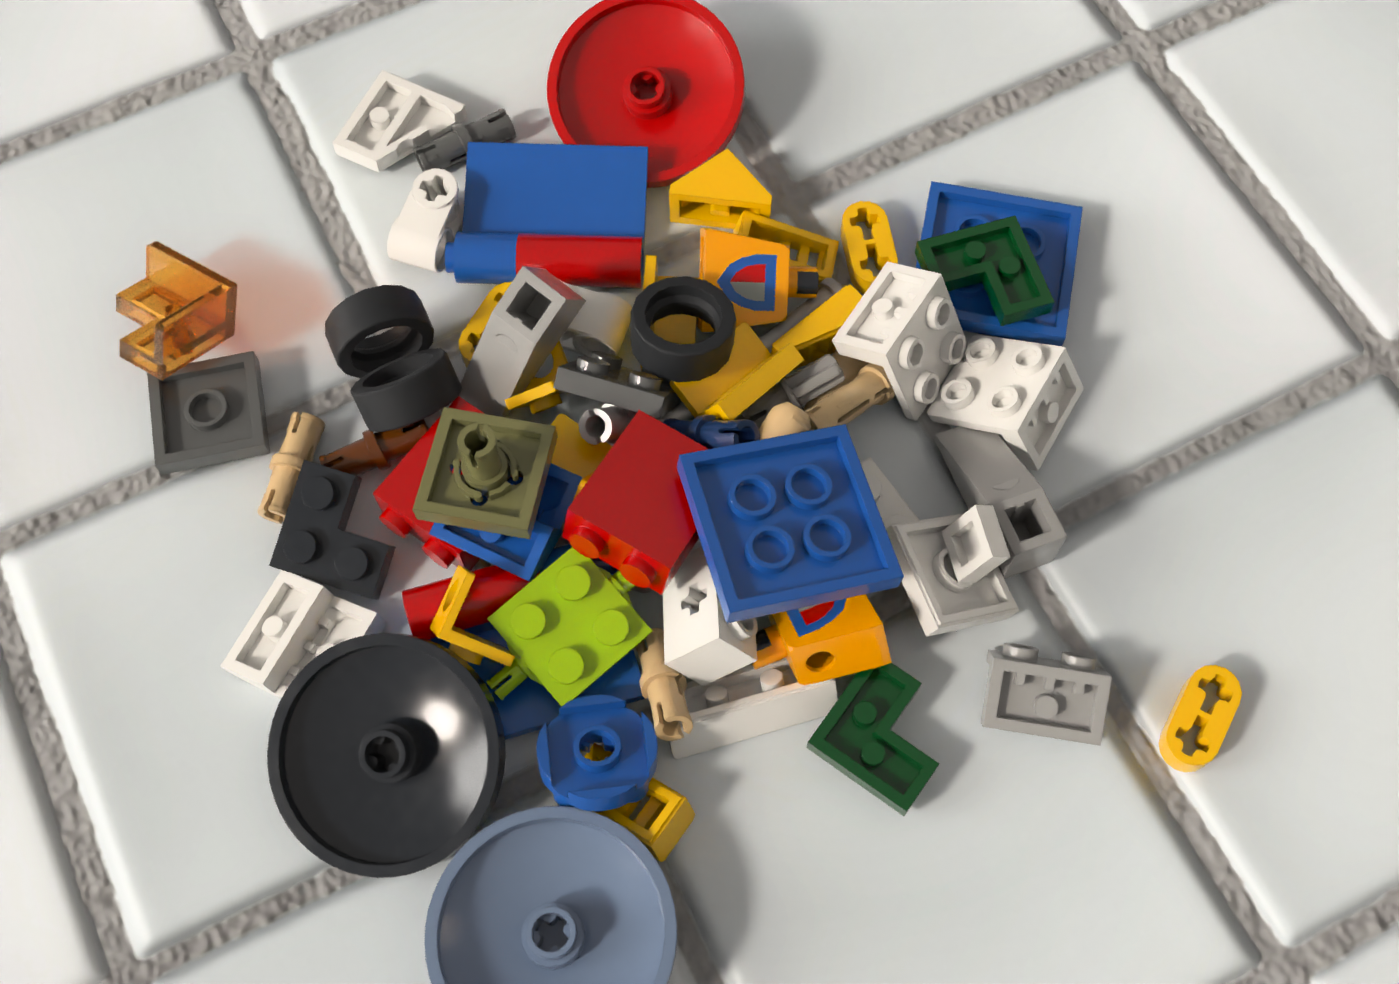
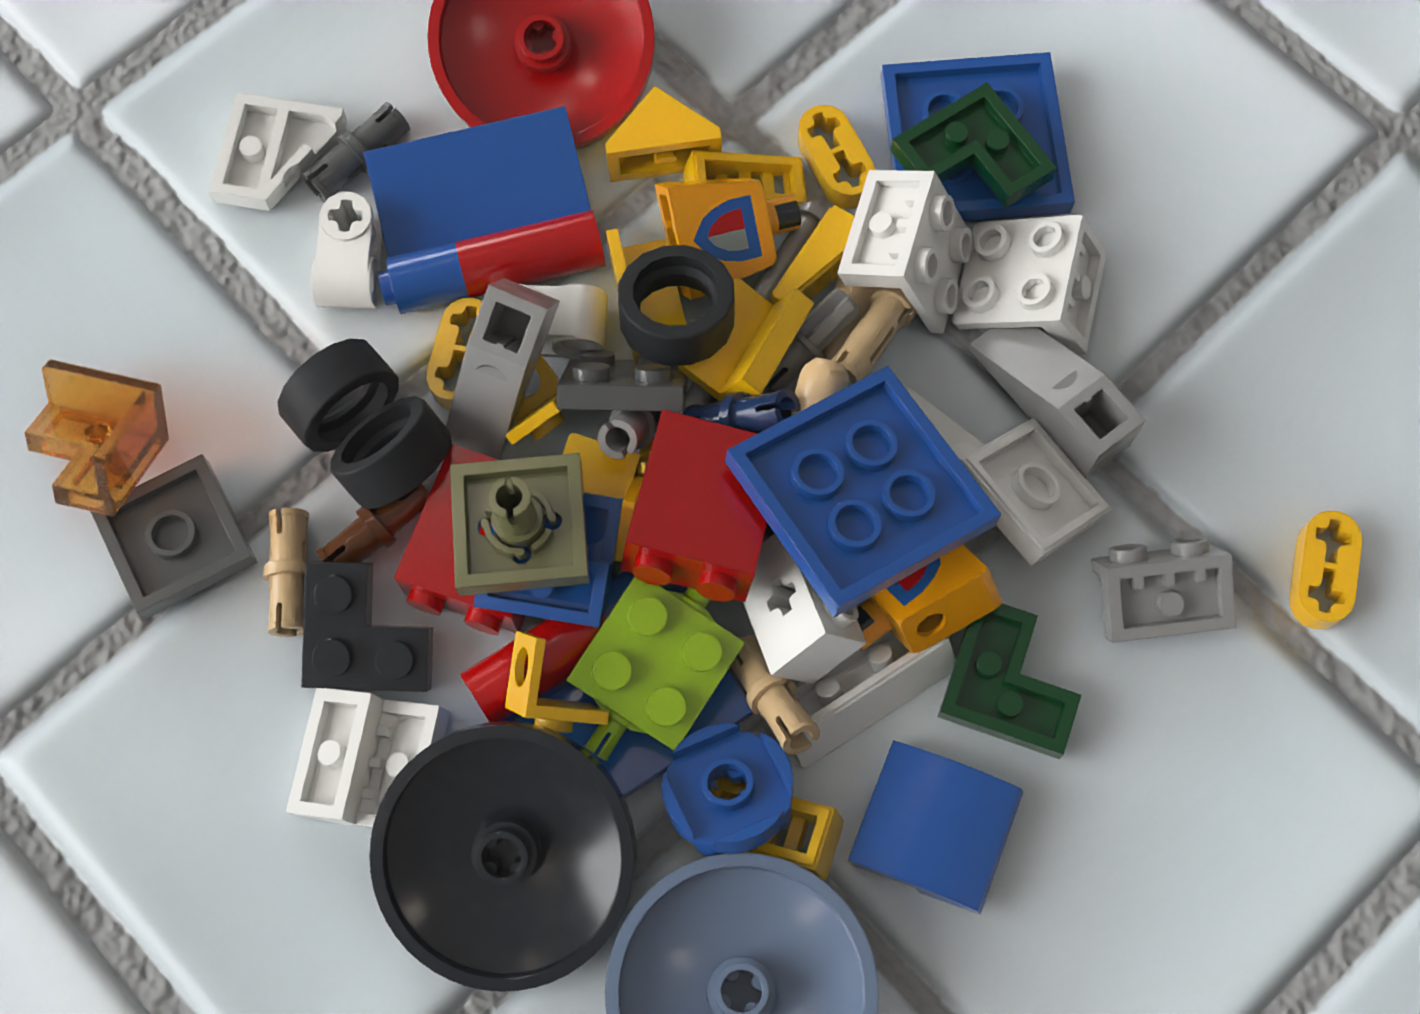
camera: 15 degrees left, 5 degrees up
(774, 843) = (936, 826): none -> blue slope
(975, 544) = (1054, 454): white plate -> none

